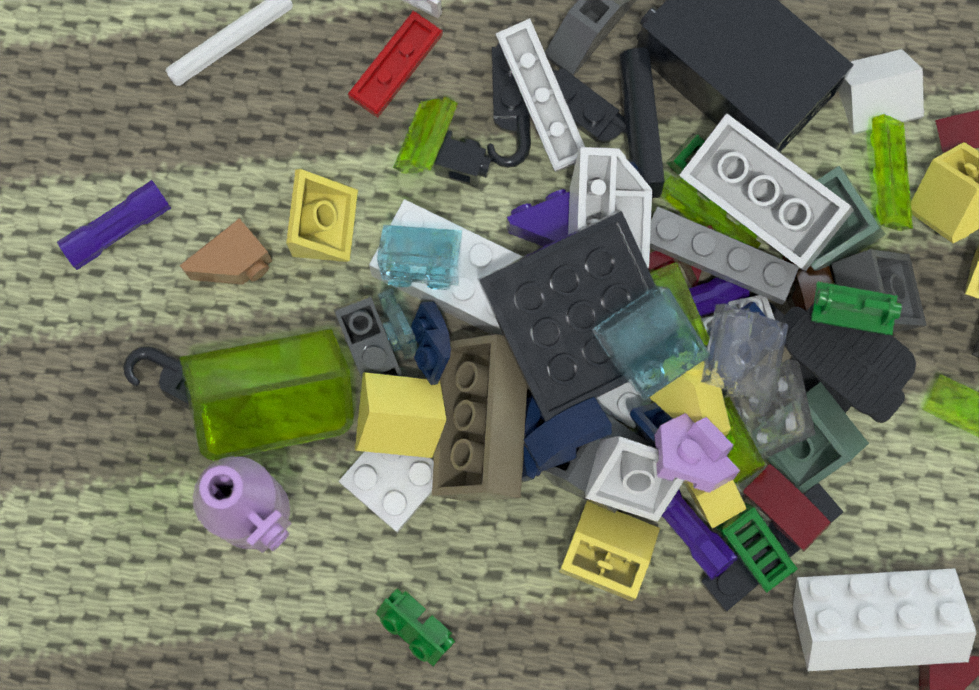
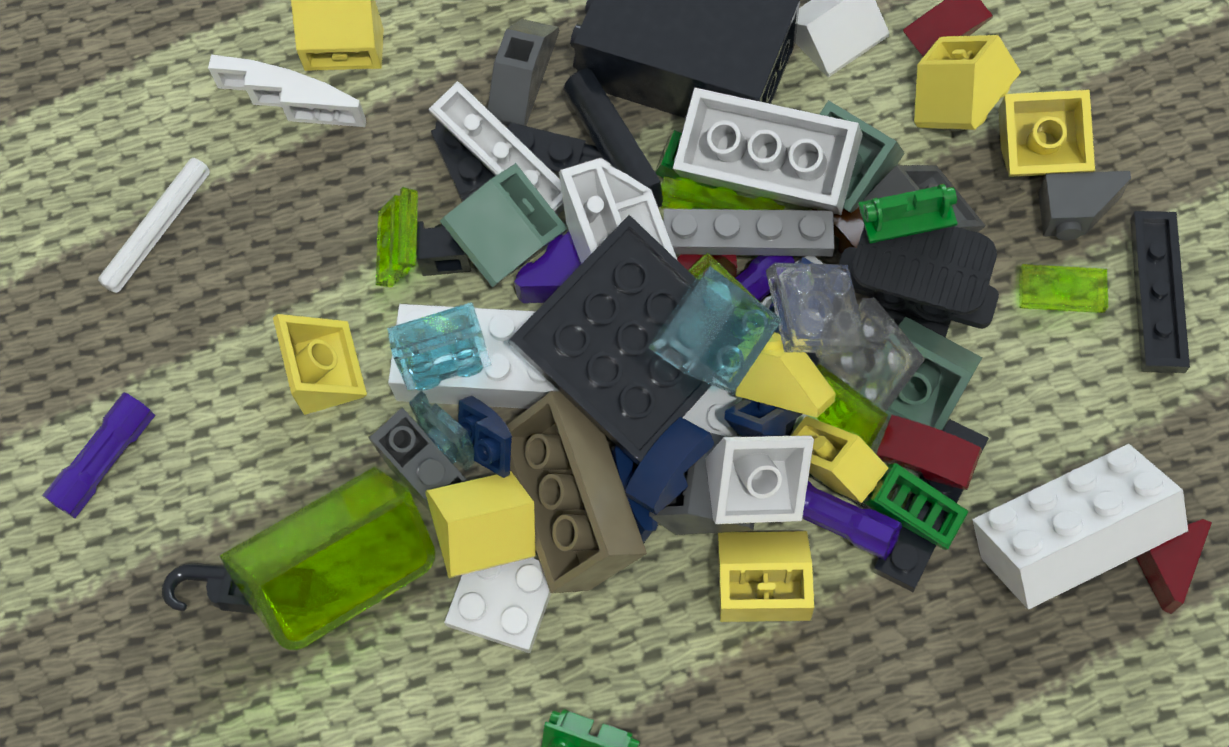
camera: 15 degrees left, 10 degrees down
(229, 258) = (236, 439): medium nougat slope -> none
(253, 514) = (346, 678): lavender piece -> none
(395, 64) = (338, 185): red tile -> none
(518, 164) = (503, 224): none -> sand green slope
(694, 453) = (810, 423): lavender plate -> none
(891, 173) = (882, 94): clear neon green plate -> none

